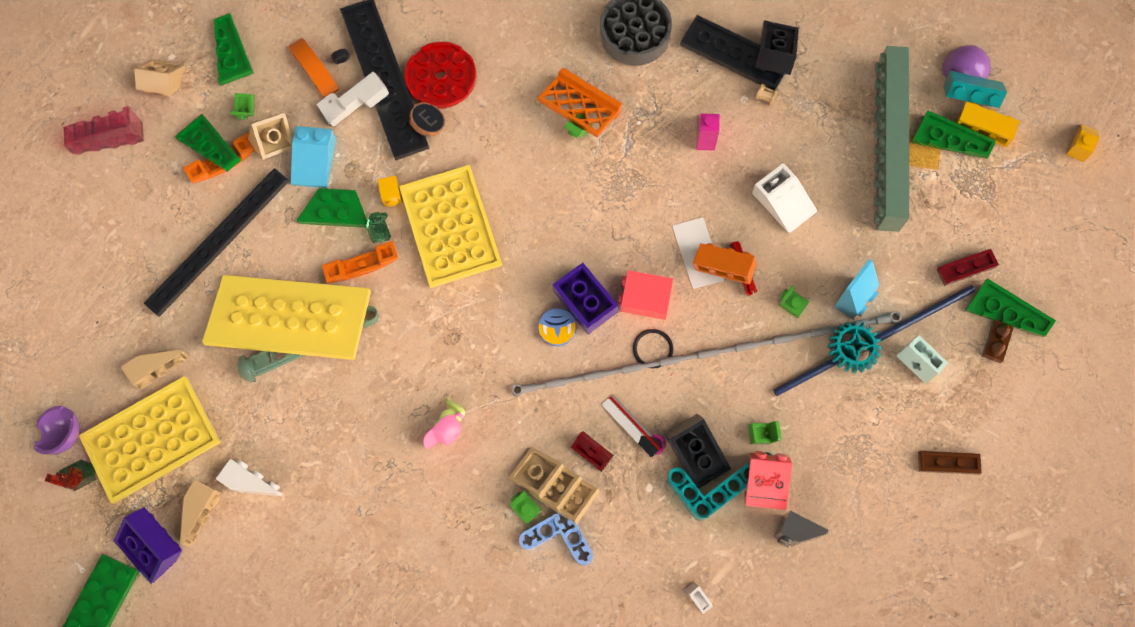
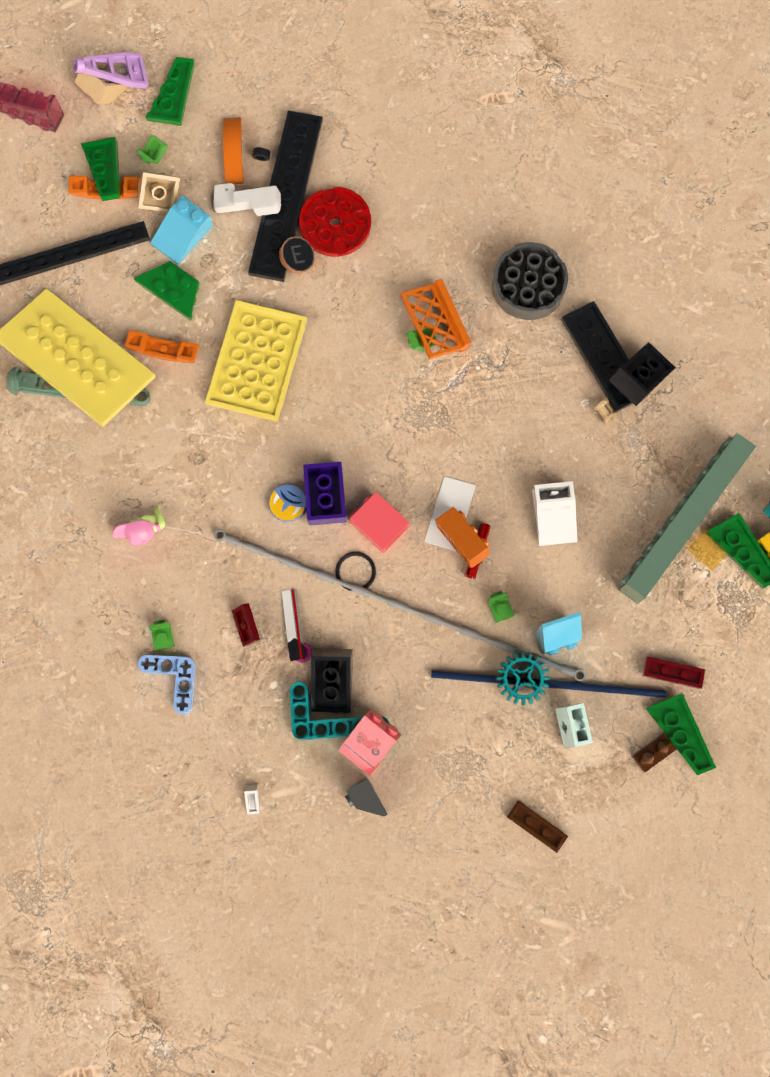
camera: 30 degrees right, 5 degrees up
(178, 45) = (133, 62): none -> lavender plate
(377, 227) = (195, 325): clear green bracket -> none
(390, 191) = (225, 299): yellow brick -> none
(554, 485) = (196, 632): tan slope -> none
(707, 131) = (528, 411): dark pink slope -> none
(764, 433) = (397, 701): bright green bracket -> none

